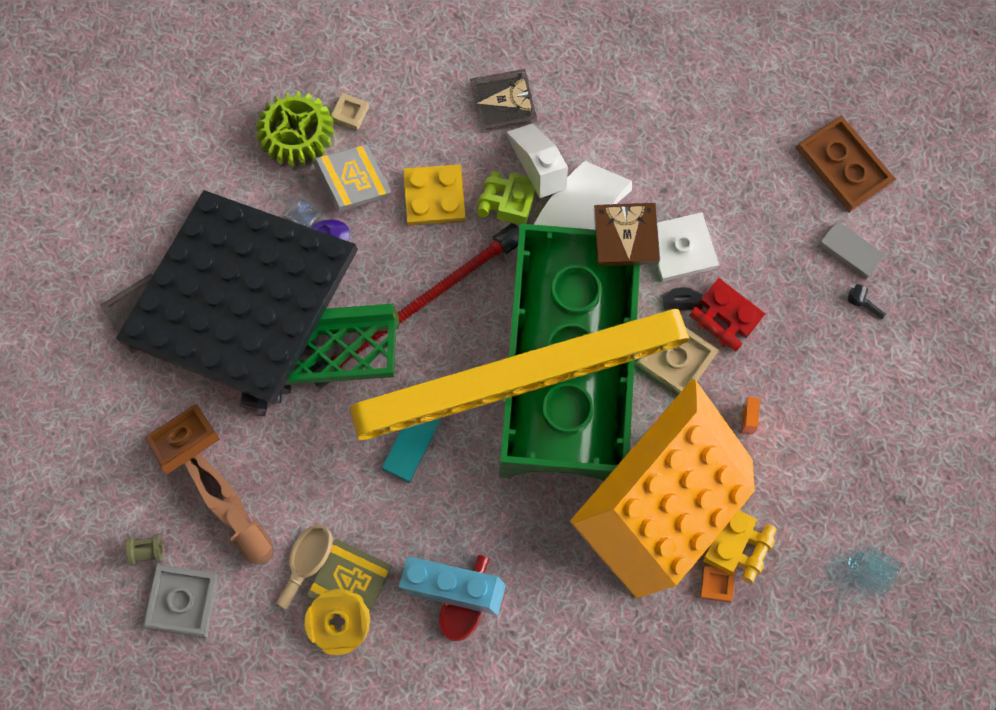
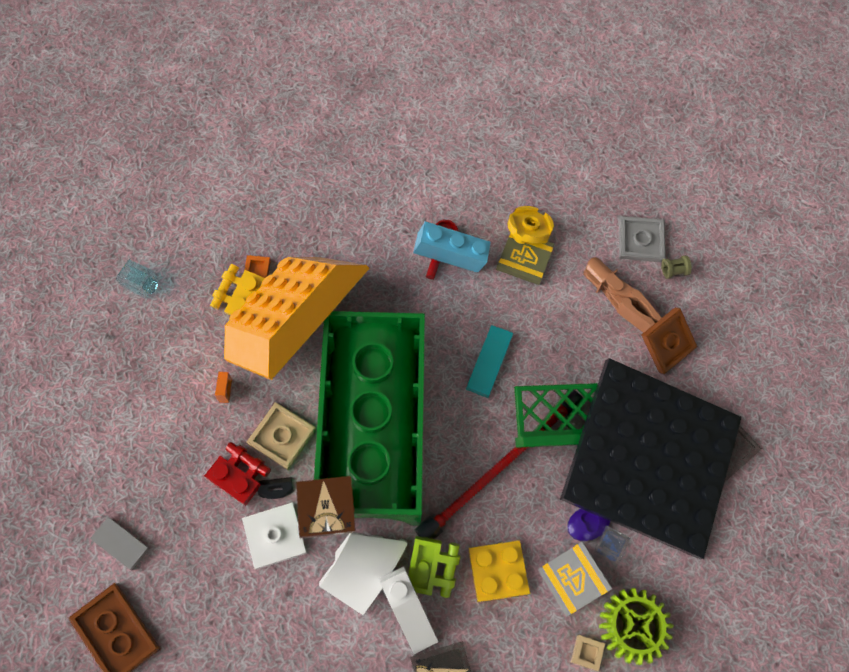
camera: 175 degrees right, 5 degrees down
(306, 559) = (558, 267): tan piece -> none
(518, 374) = (408, 376): yellow beam -> none
(857, 297) = (119, 498): black hand -> none

